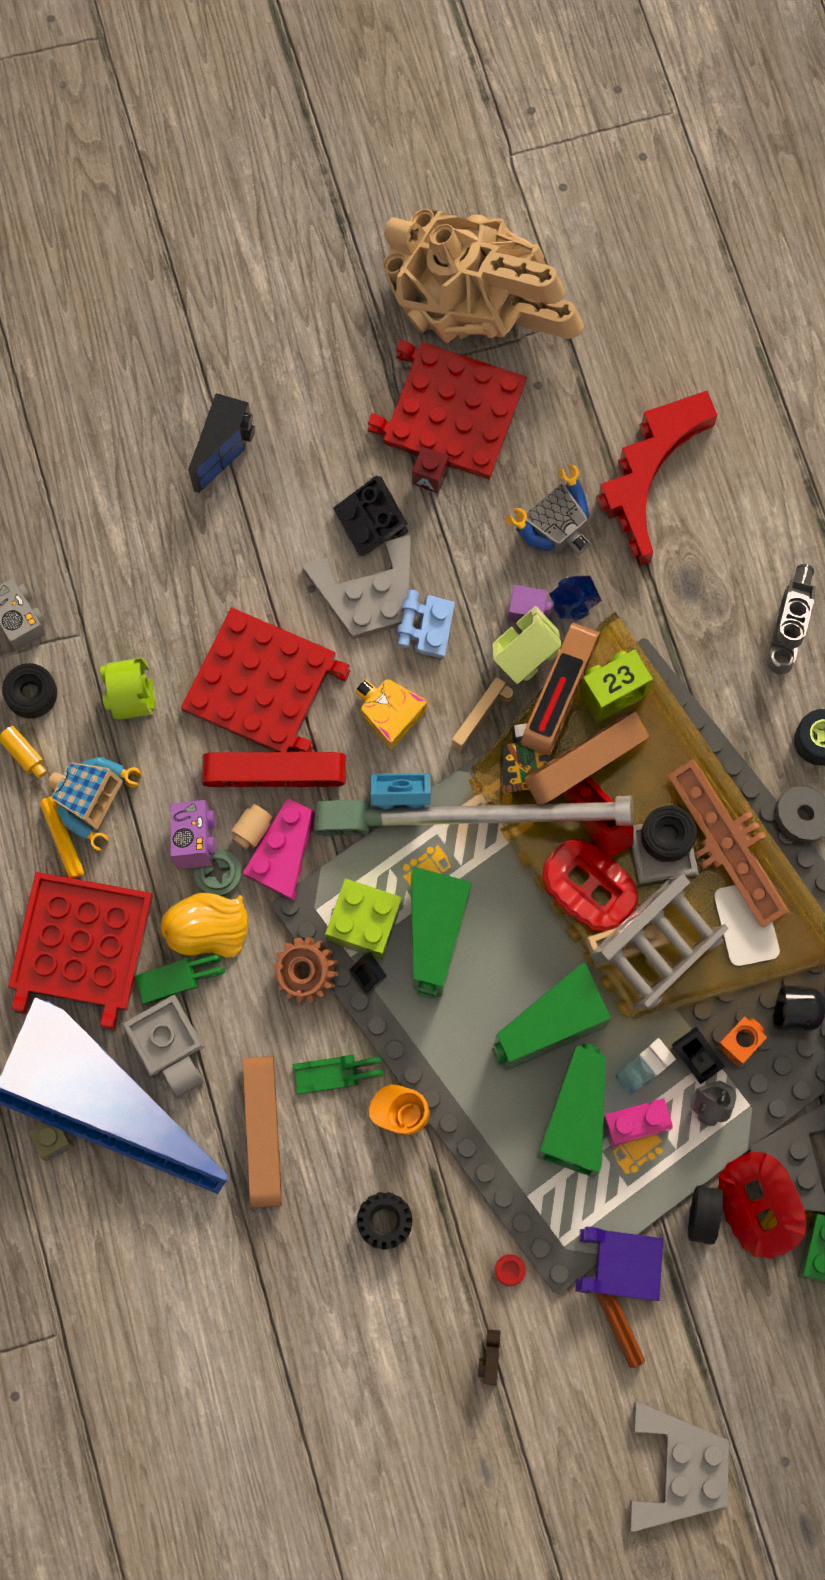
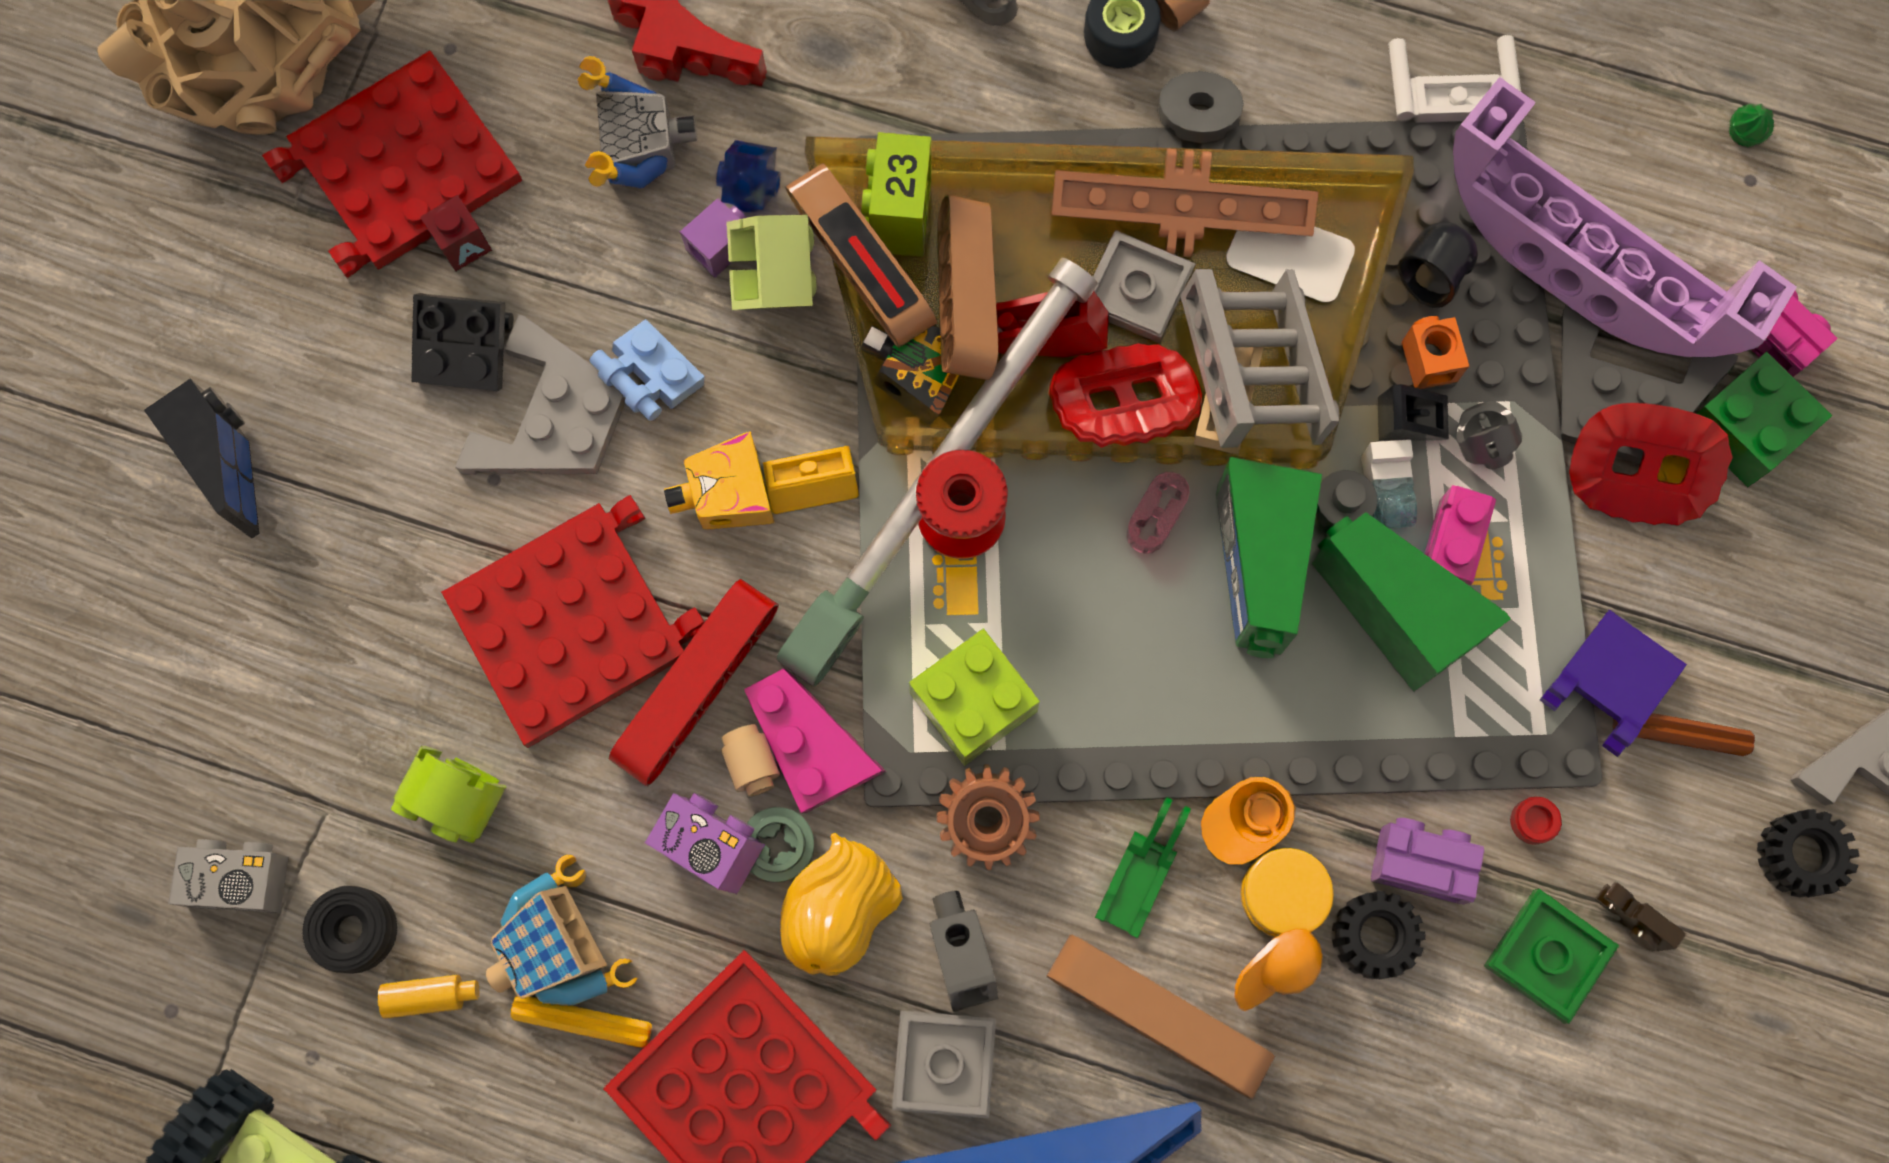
camera: 55 degrees left, 0 degrees up
(175, 978) = (877, 1000): green arm -> none
(183, 1076) = (1015, 1073): light grey brick -> none
(216, 1013) = (965, 967): none -> dark grey torso
(330, 1176) = (1283, 966): none -> light orange cap
(368, 972) = (1046, 739): black tile -> none
(373, 1156) = (1286, 892): none -> yellow head
(400, 789) = (839, 539): dark azure plate -> none
(428, 752) = (810, 480): none -> yellow slope
(436, 920) = (1052, 615): green slope -> none
(439, 1324) = (1551, 956): none -> green tile
(442, 1221) = (1428, 862): none -> medium lavender brick
(463, 823) = (957, 480): none -> red hose
(496, 691) = (797, 344): tan hinge -> none
(540, 957) = (1149, 507): none -> clear pink beam
(614, 1436) = (1833, 846): none -> black tyre
(618, 1046) = (1344, 495): none -> dark grey piece
(668, 850) = (1133, 236): black tyre -> none
(705, 1214) = (1621, 537): black tyre -> none

